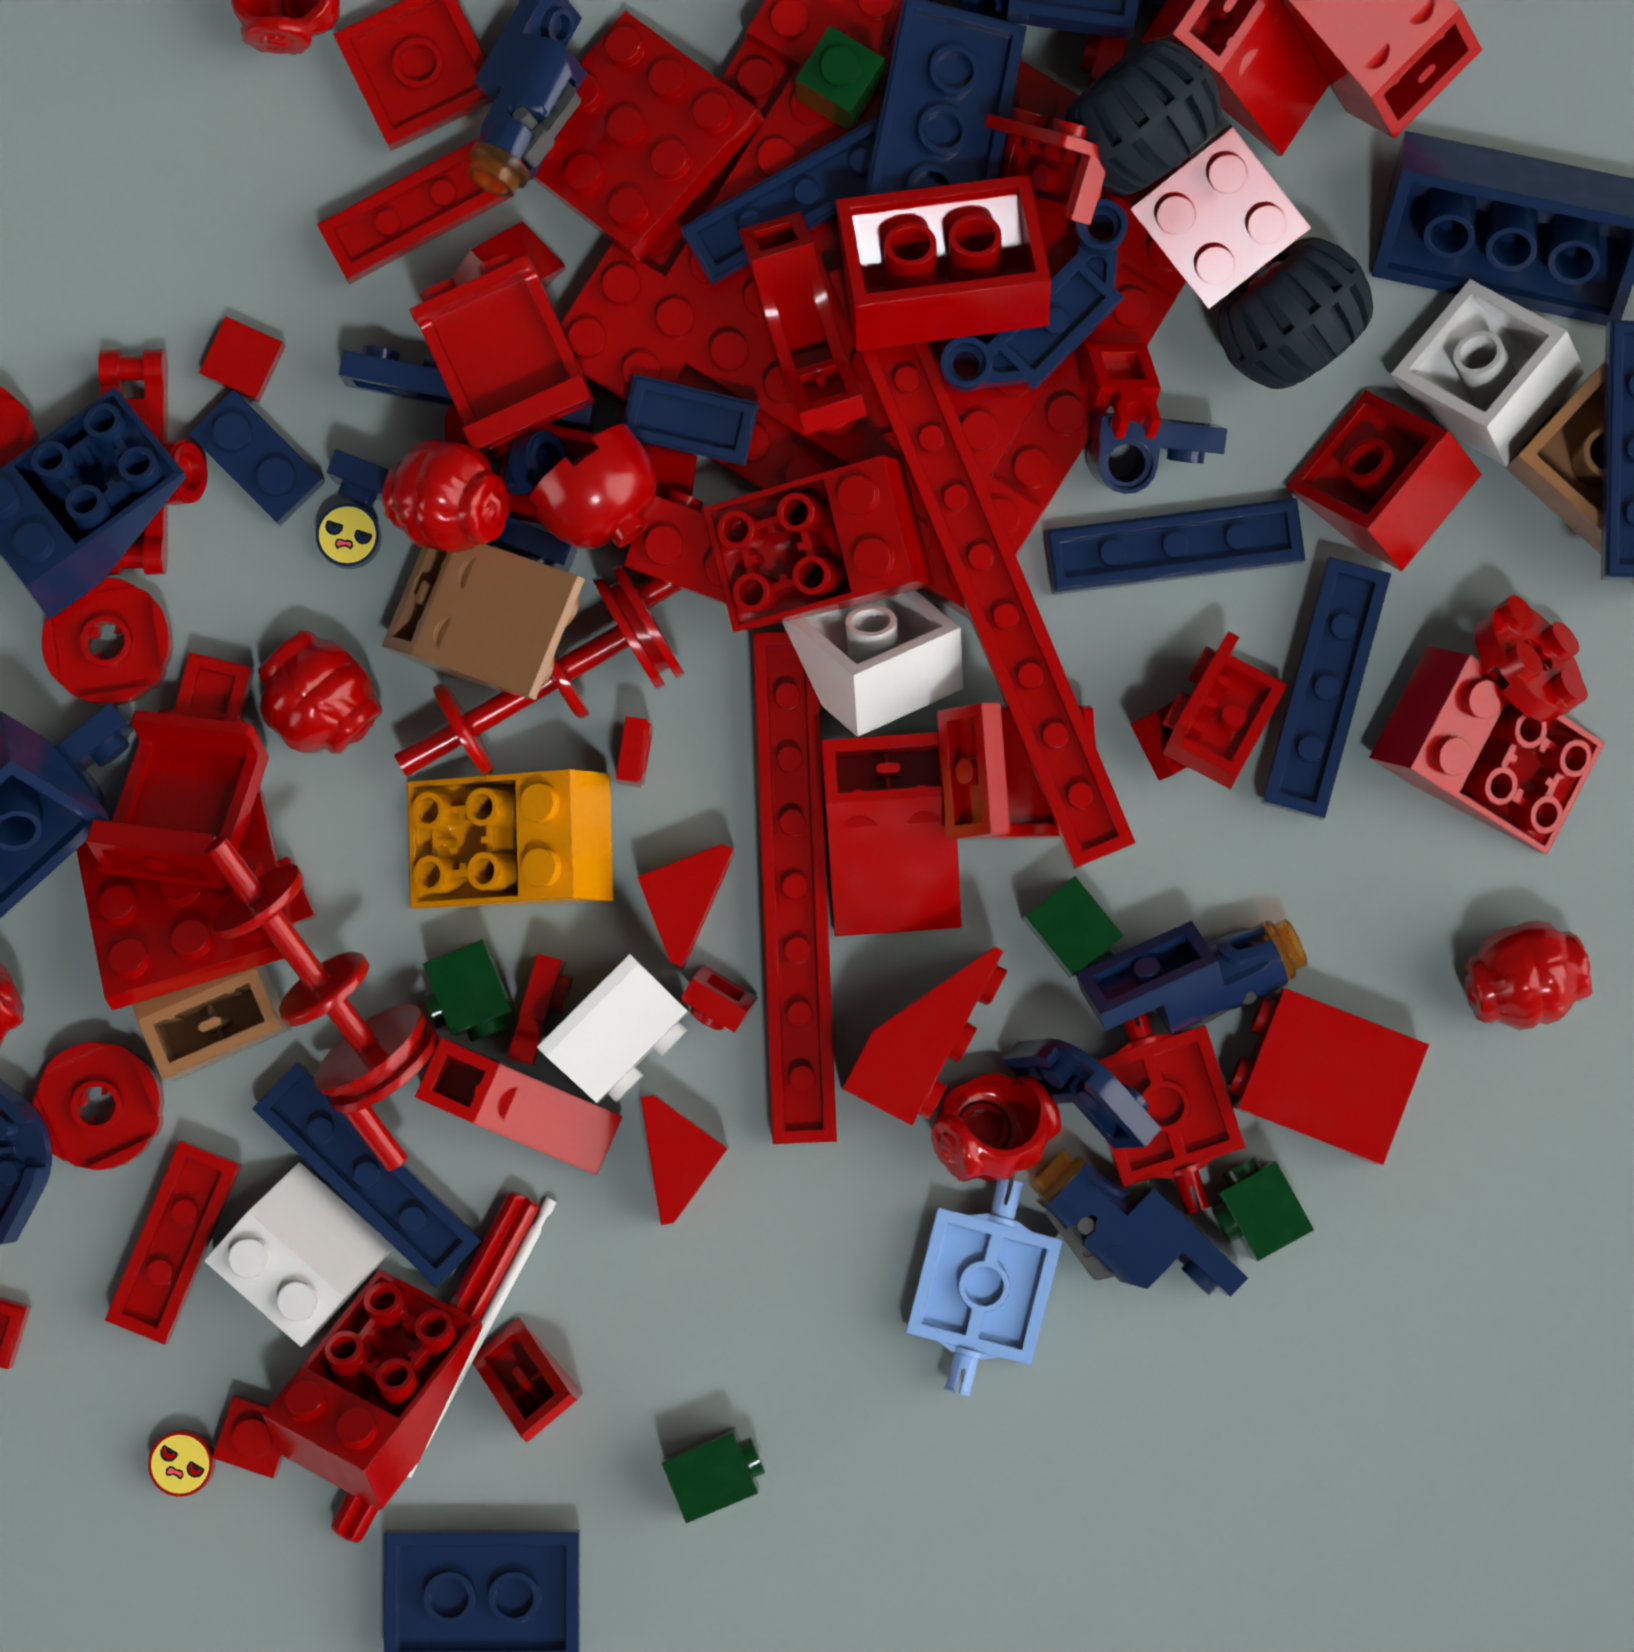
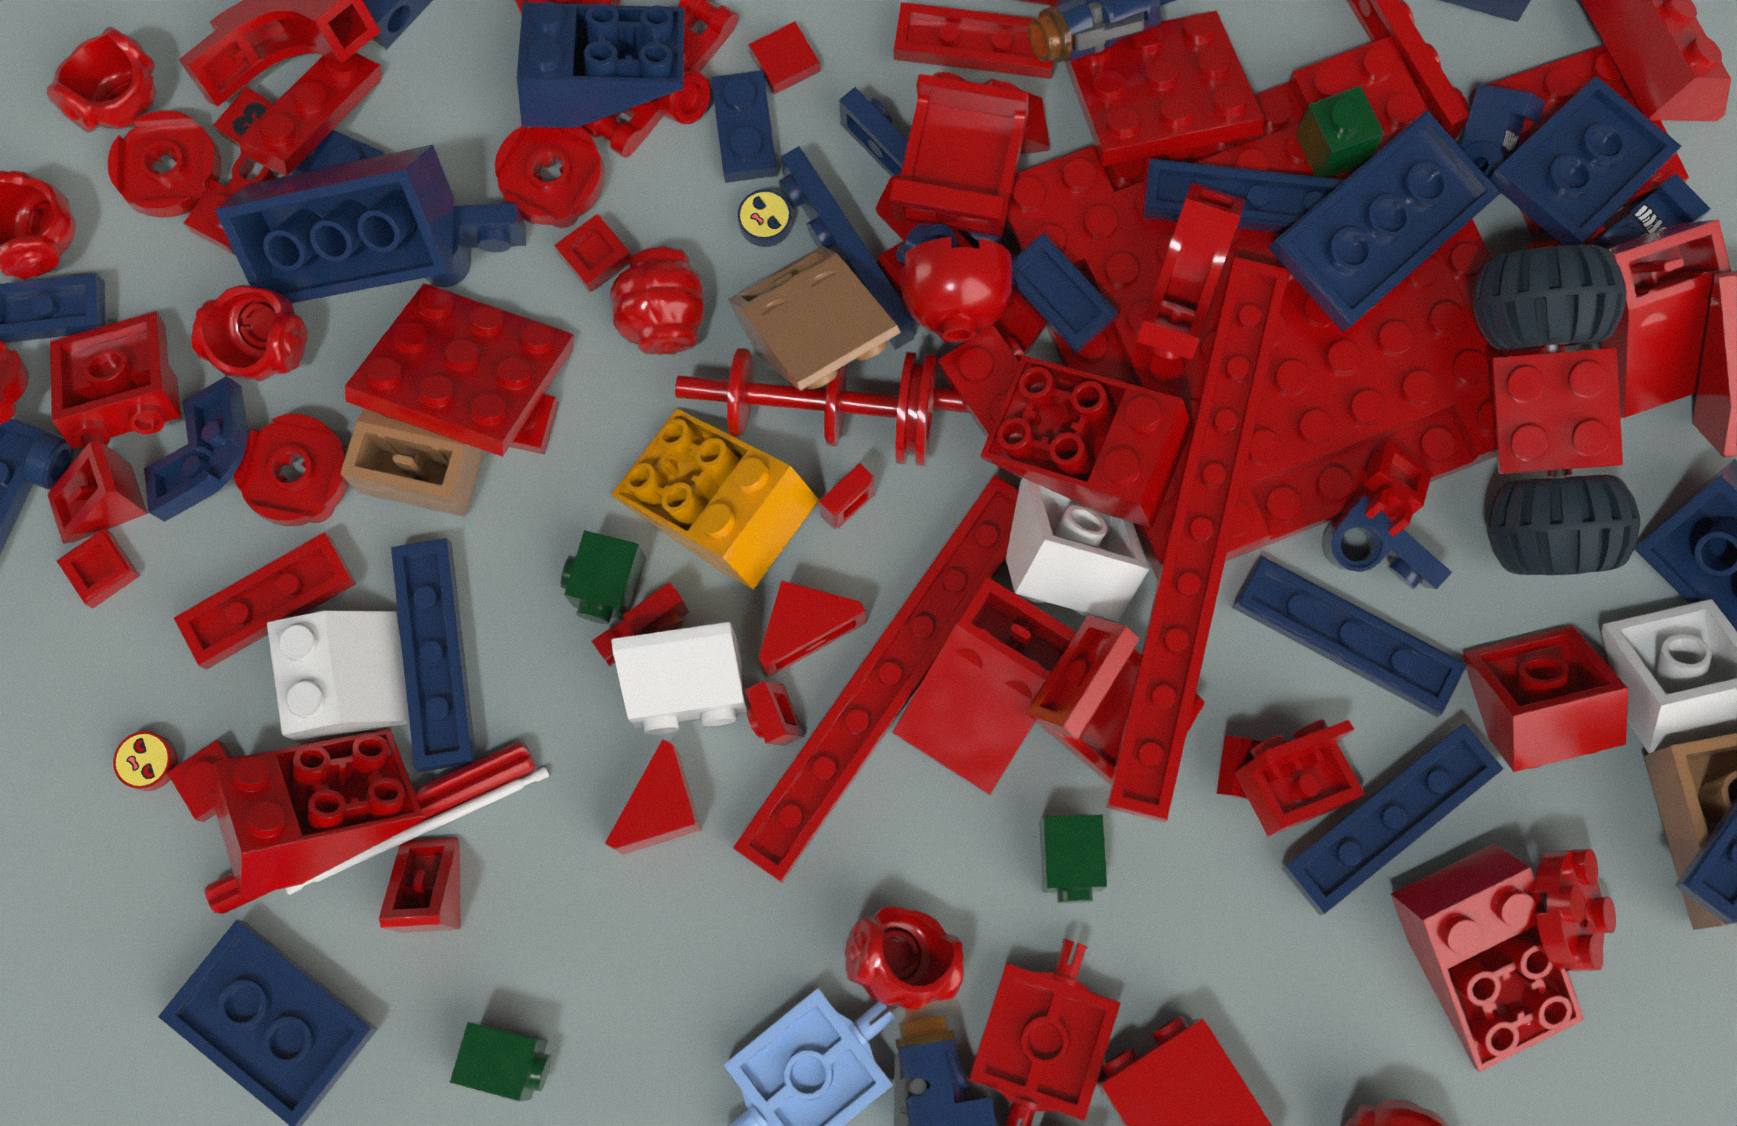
camera: 40 degrees right, 10 degrees down
(181, 793) = (510, 303): red panel -> none
(375, 1053) = (499, 568): red piece -> none
(446, 497) = (847, 216): red hair -> none
(518, 1106) = (572, 681): slope -> none
(910, 1049) = (889, 848): red slope -> none
(943, 262) = (1327, 298): red slope -> none
(1059, 175) = (1454, 287): red bracket -> none
(1079, 302) = (1378, 402): dark blue plate -> none
(1080, 1079) = (995, 969): dark blue plate -> none
(1190, 977) = (1136, 959): dark blue plate -> none

